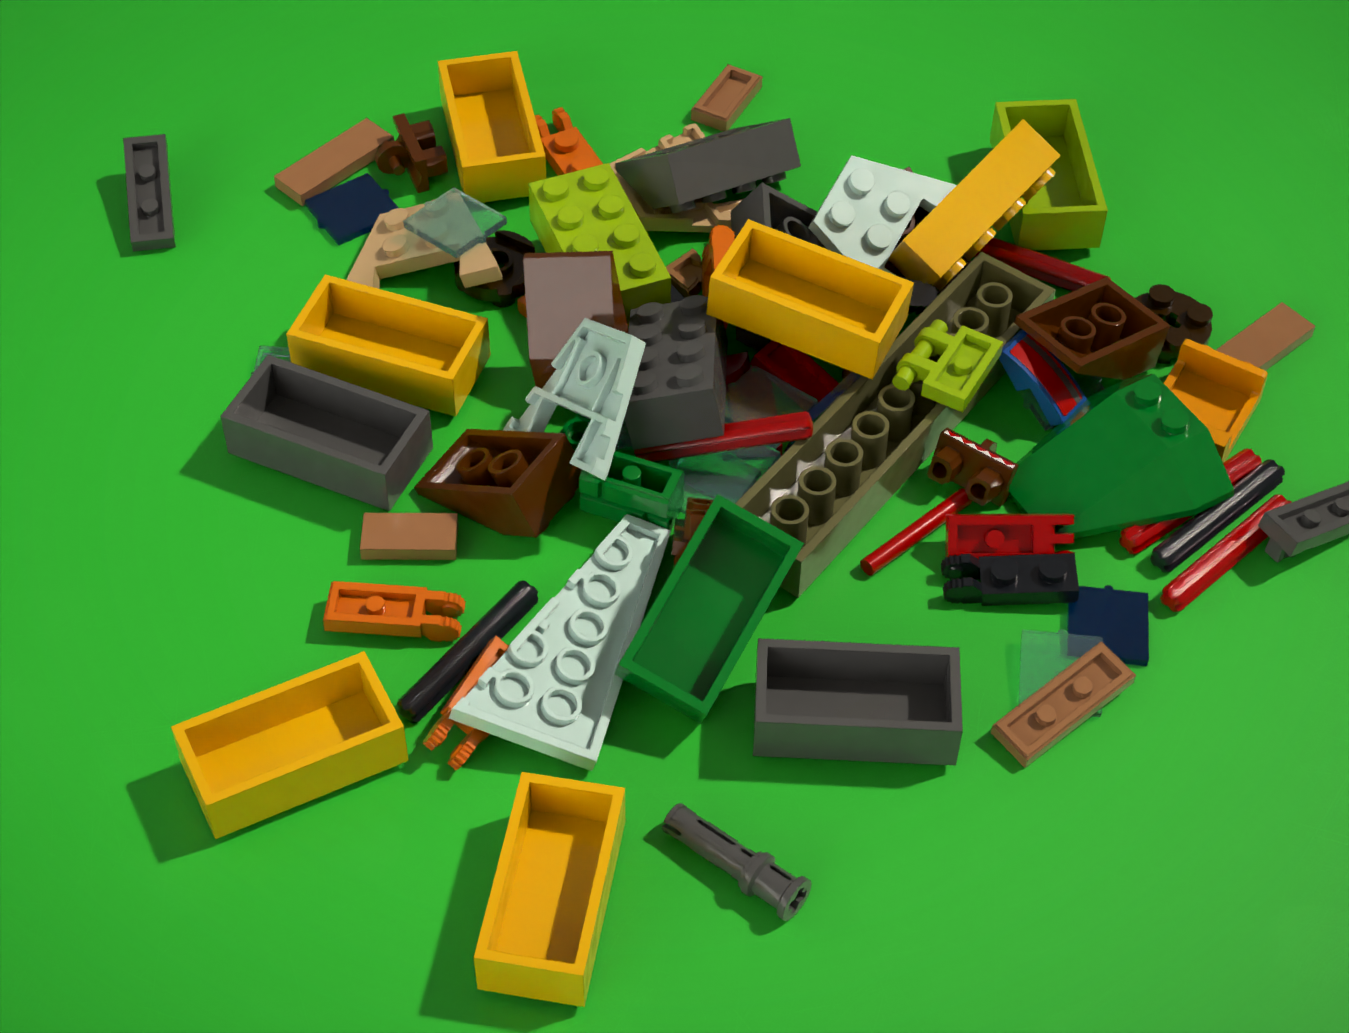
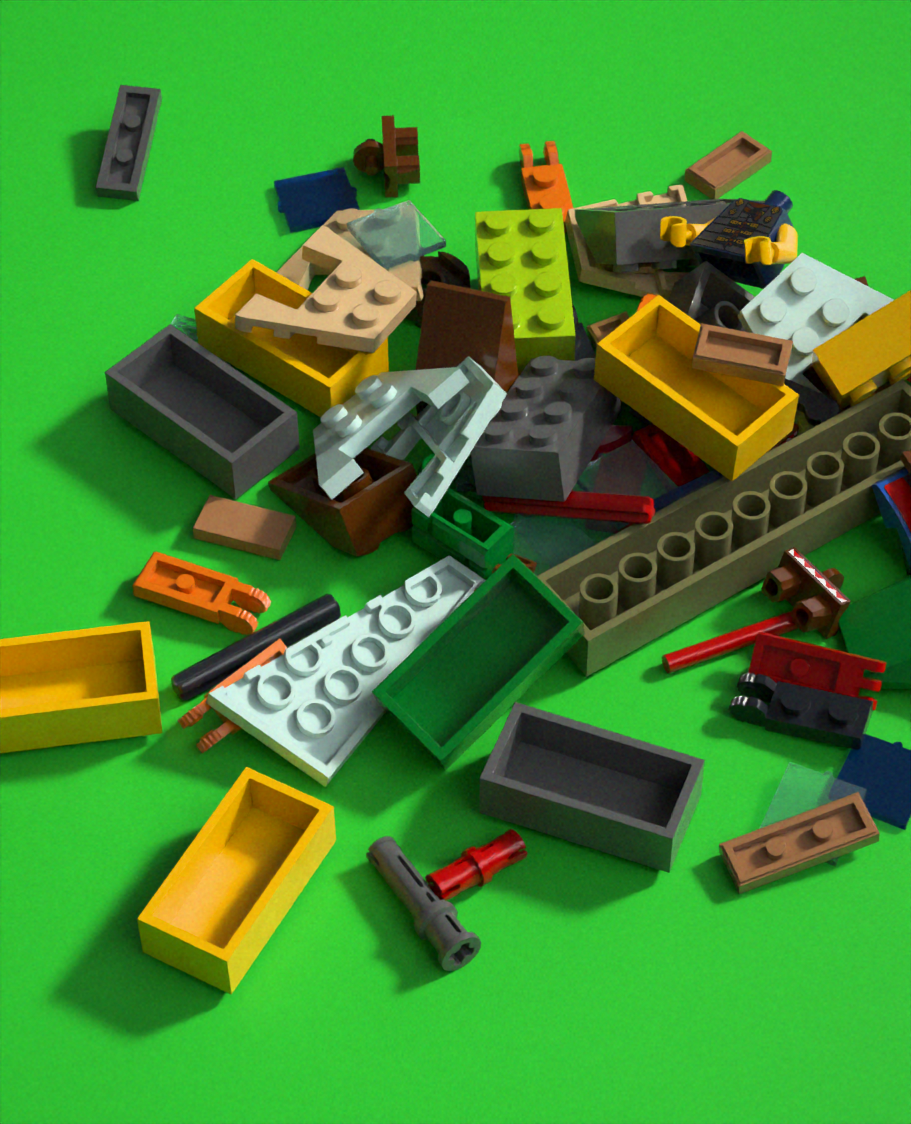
camera: 20 degrees right, 0 degrees up
(332, 162) = (314, 148): medium nougat tile -> none
(442, 299) = (349, 309): none -> tan wing
(491, 126) = (473, 145): yellow piece -> none
(501, 393) = (369, 413): none -> light aqua wing
(775, 808) = (477, 865): none -> red pin
(789, 156) = (744, 241): none -> torso
(849, 257) = (742, 354): none -> medium nougat tile
(957, 373) = (821, 492): lime plate -> none

